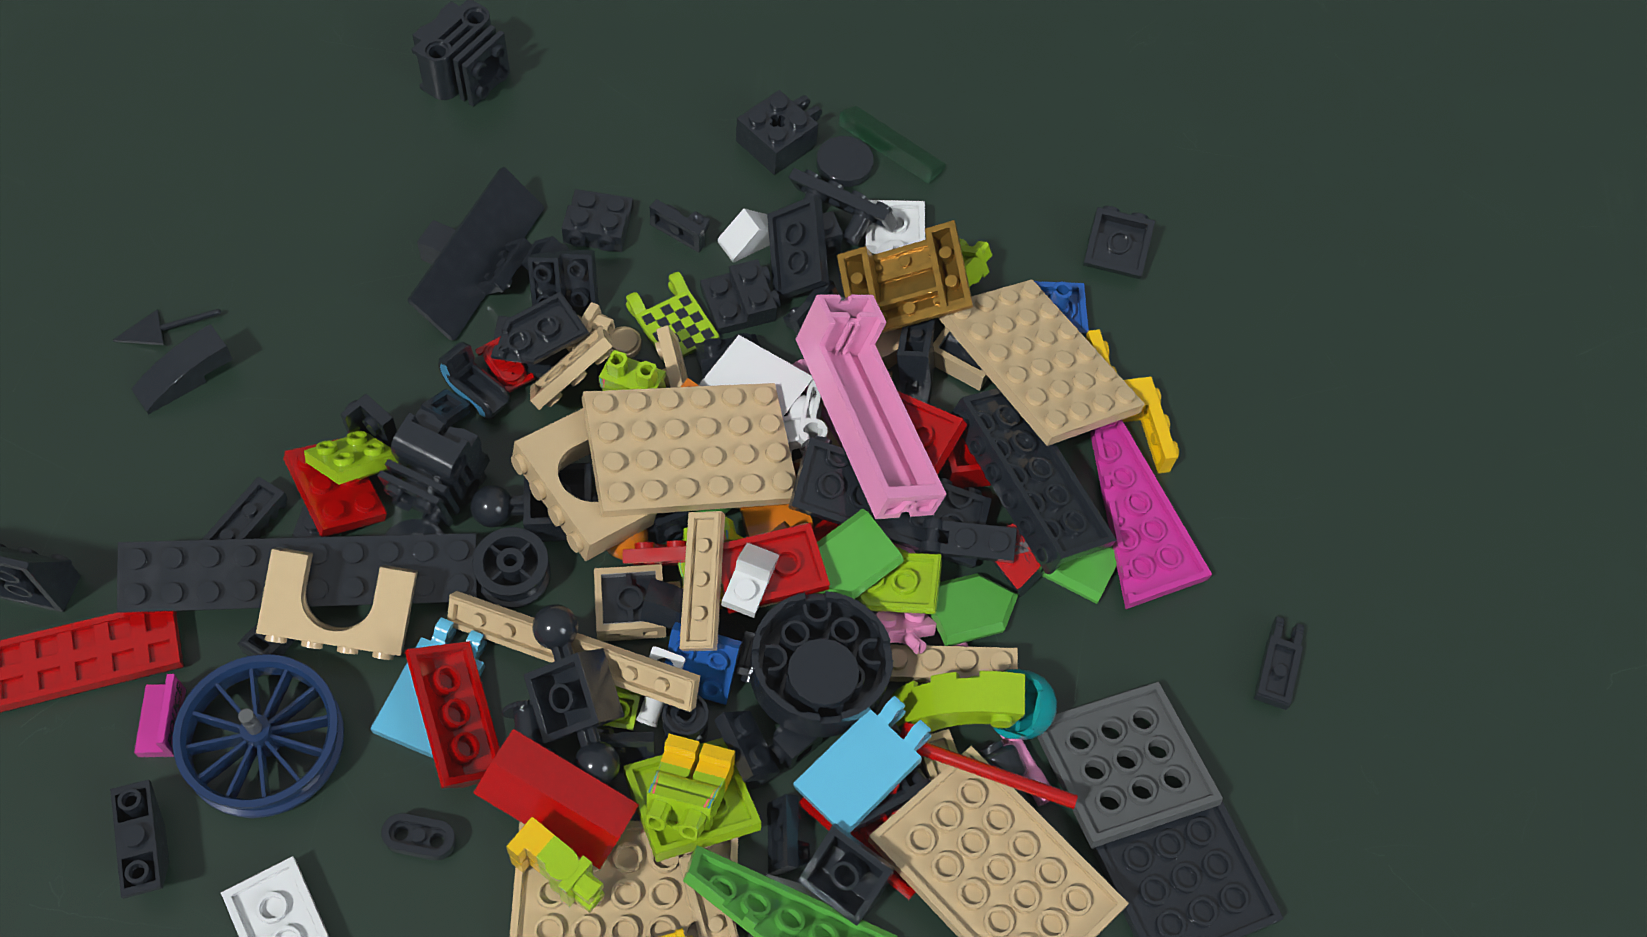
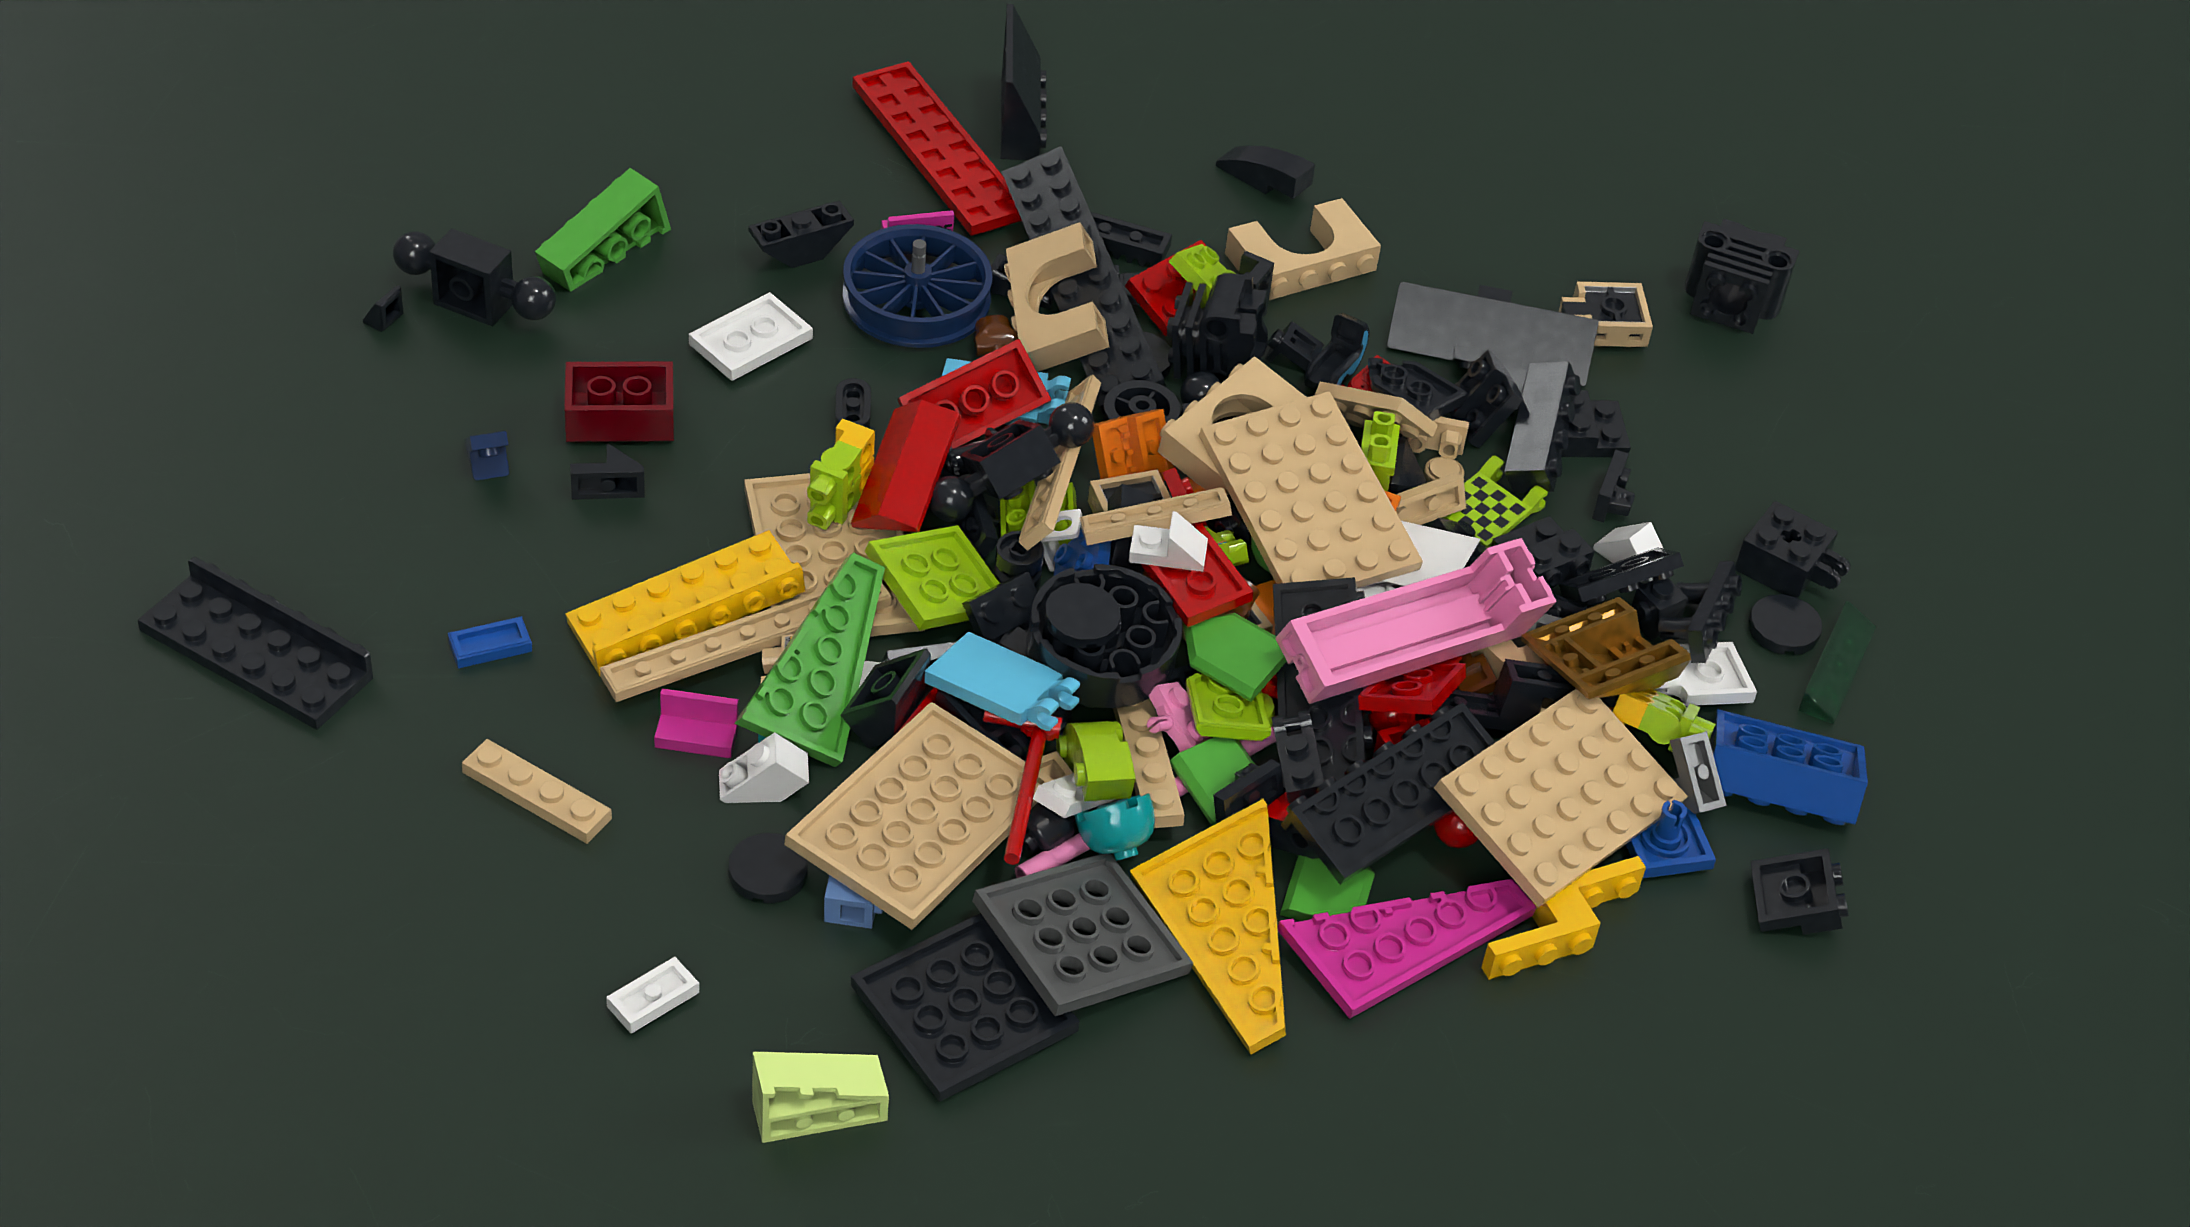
camera: 80 degrees right, 15 degrees down
(150, 329) = (1302, 144): black piece -> none
(322, 332) = (1347, 252): none -> tan arch
(357, 675) = (993, 333): none -> reddish brown piece
(470, 161) = (1617, 307): none -> piece
(563, 580) = (1130, 444): none -> orange slope
(613, 250) = (1542, 426): none -> brick
(688, 786) = (941, 556): lime hips -> none
(989, 581) = (1249, 787): none -> black hinge
(995, 744) = (1064, 797): none -> white plate
(999, 203) = (1789, 767): none -> blue slope
(1013, 266) = (1697, 773): none -> dark grey slope
(1110, 647) = (1222, 912): none -> yellow wing
(1279, 666) = (1262, 1090): black hinge -> none

